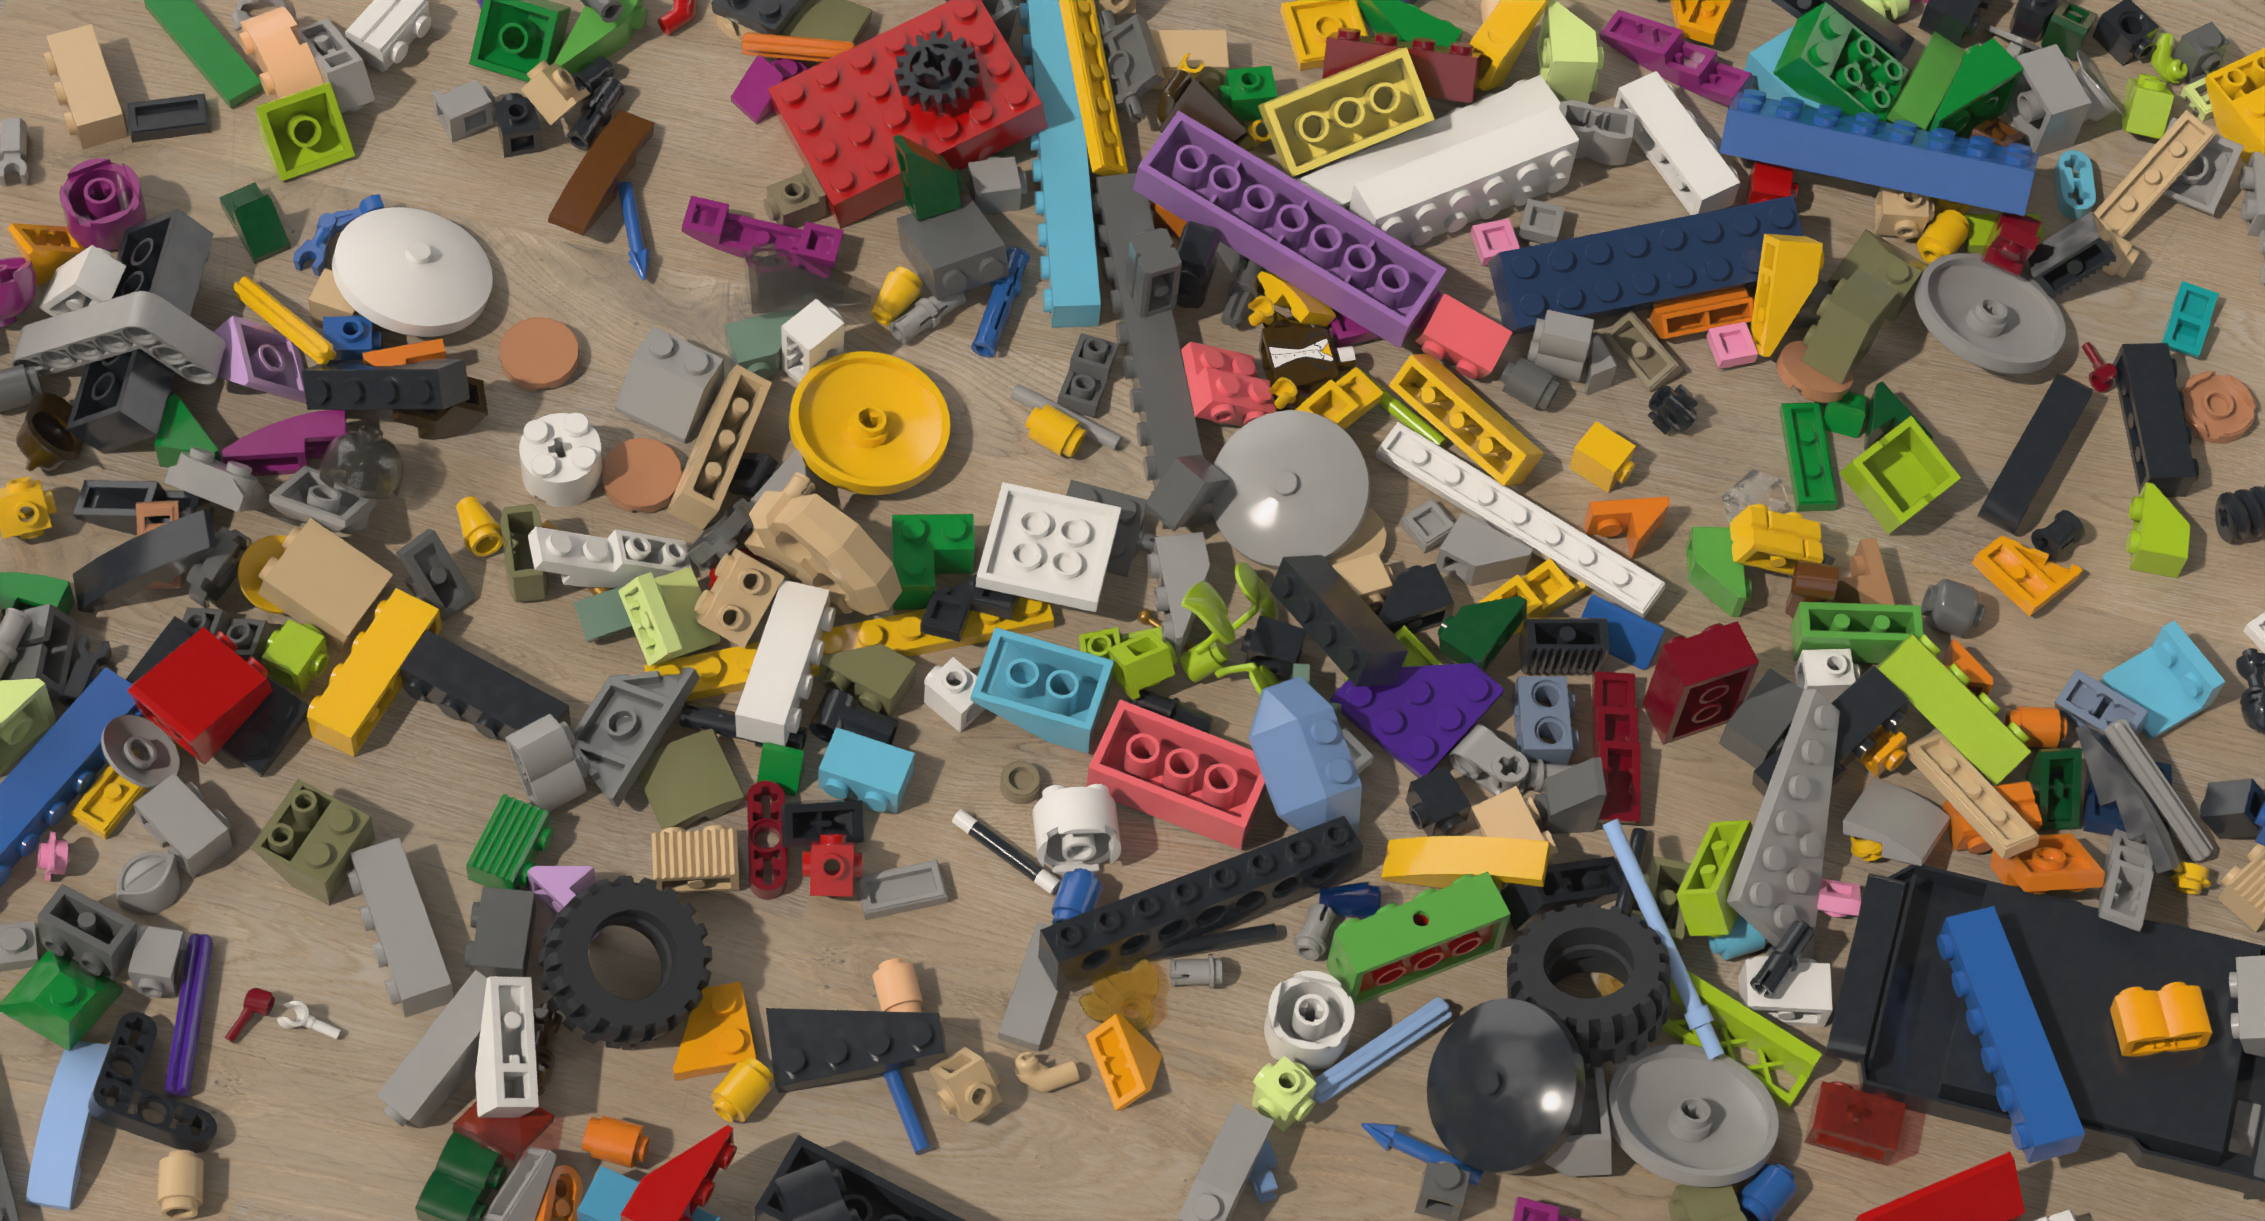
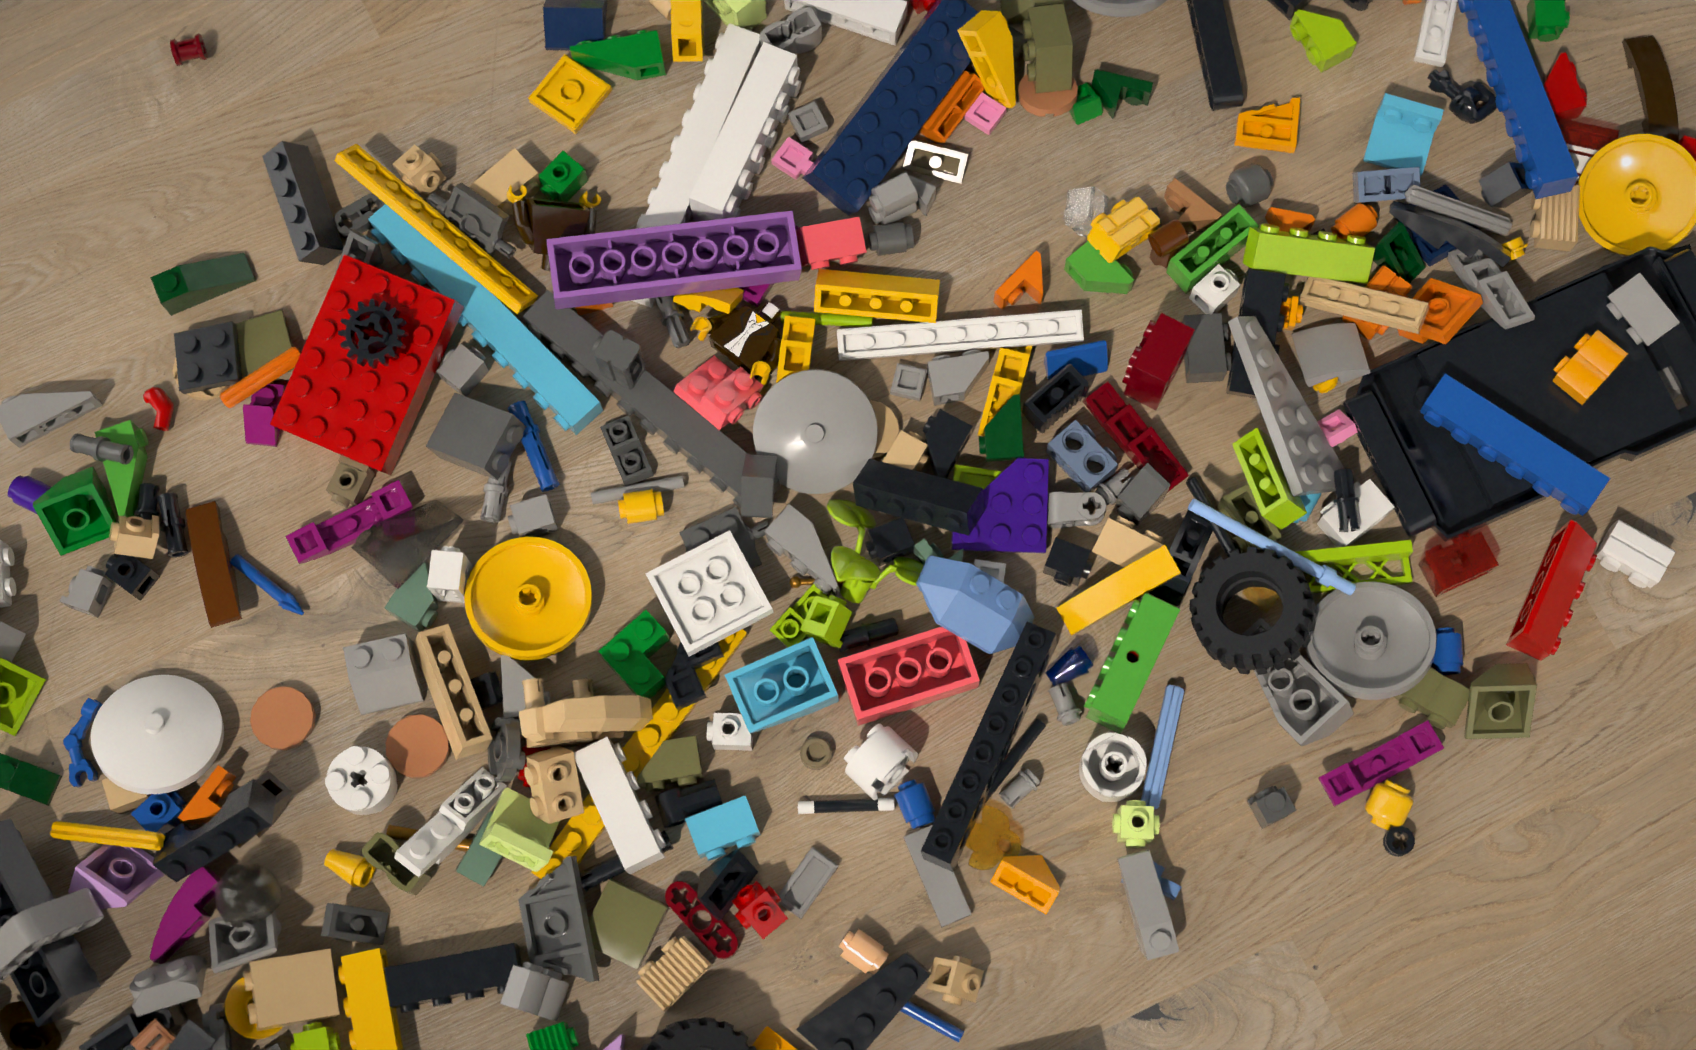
camera: 30 degrees left, 15 degrees up
(180, 433) = (114, 968): green slope -> none
(782, 766) = (671, 869): green slope -> none
(896, 295) = (467, 495): yellow cone -> none
(926, 179) = (426, 408): dark green slope -> none
(942, 360) = (533, 517): none -> light grey brick
(1042, 1078) = (988, 931): tan arm -> none
(1198, 256) = (632, 324): black brick -> none
(1346, 112) = (638, 147): light yellow brick -> none
(1387, 1136) = (1213, 796): blue piece -> none
(1442, 71) = (642, 86): dark red brick -> none
(1505, 1086) = (1262, 717): black dish -> none
(1603, 457) = (974, 252): yellow brick -> none
(1672, 409) = (988, 186): black gear -> none
(1808, 457) = (1086, 151): green tile -> none
(1900, 476) = (1151, 122): lime piece -> none
(2059, 534) = (1268, 86): black bush -> none

